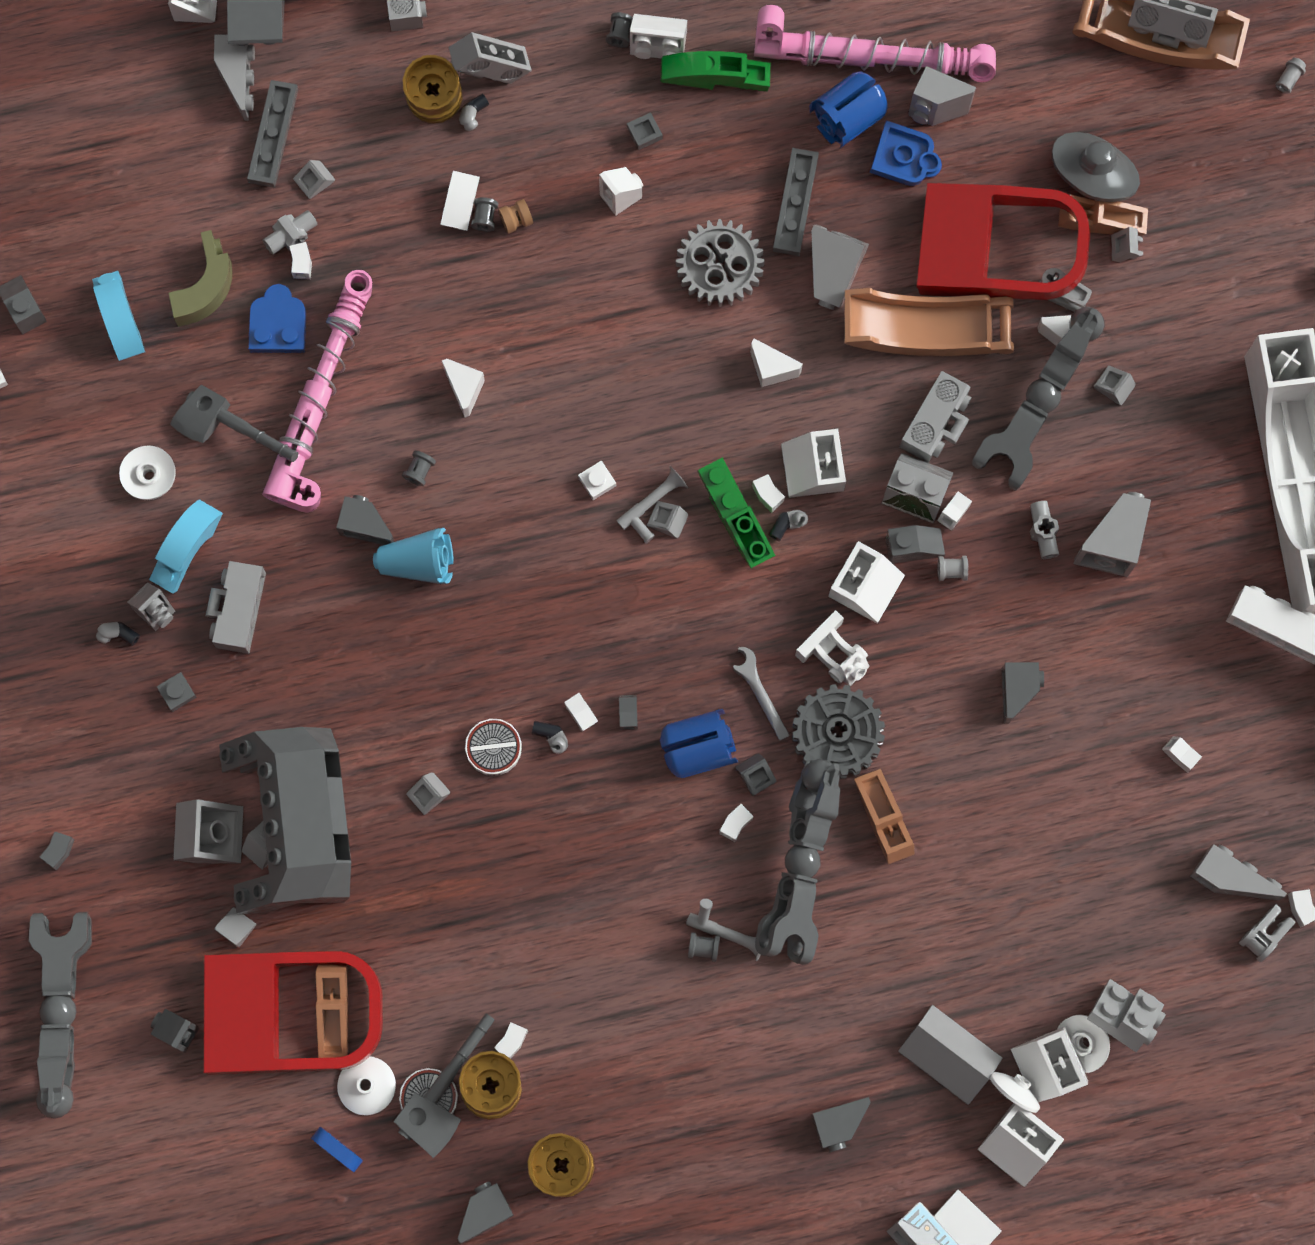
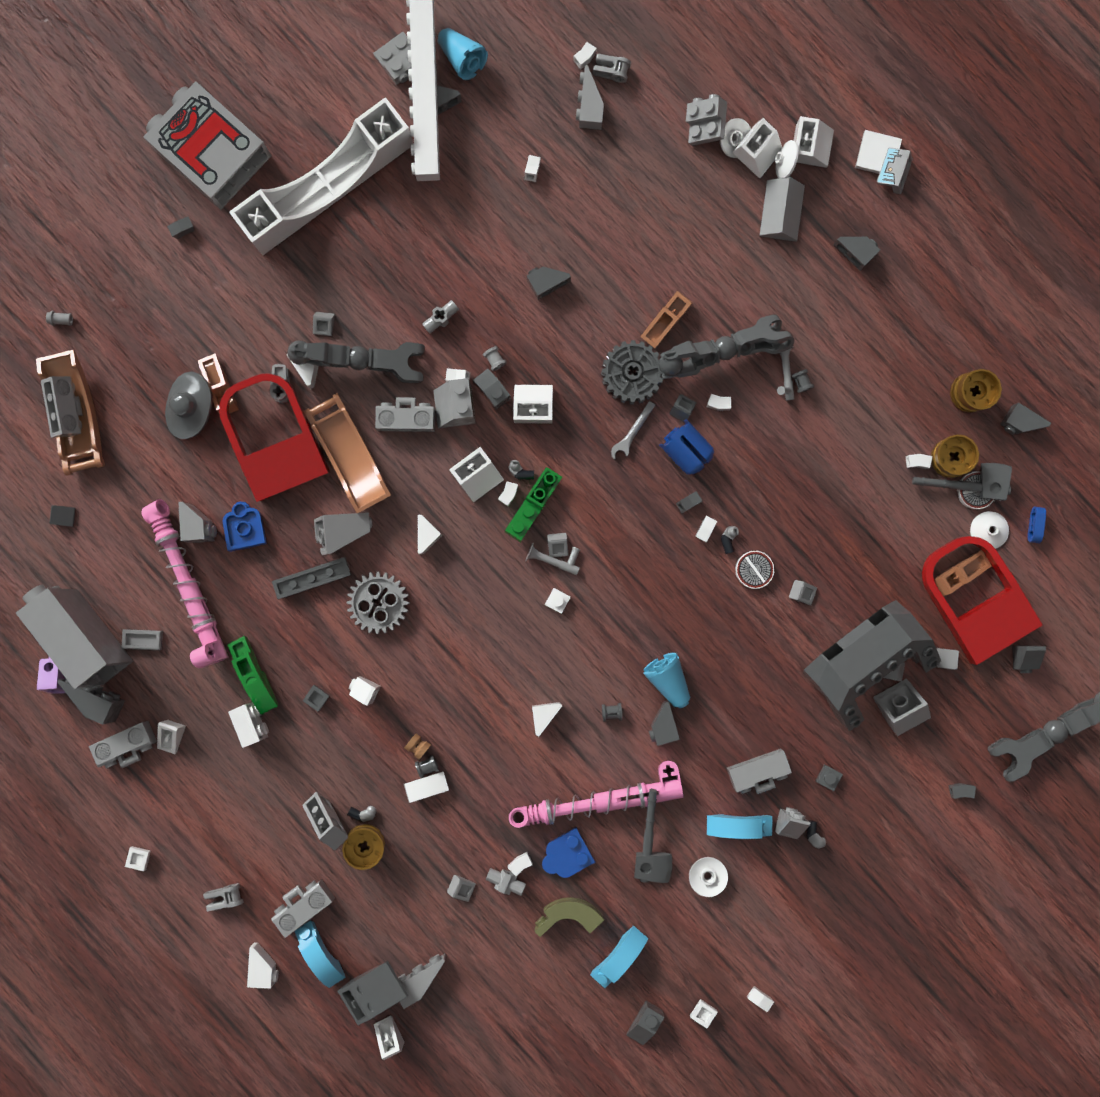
camera: 115 degrees left, 10 degrees up
(272, 133) = (446, 932): dark grey plate -> none
(619, 30) = (256, 752): dark grey bush -> none
(824, 641) = (589, 386): white tile -> none
(849, 108) = (236, 568): blue cylinder -> none
(1118, 537) = (421, 269): light grey slope -> none
(1126, 244) = (229, 361): light grey tile -> none

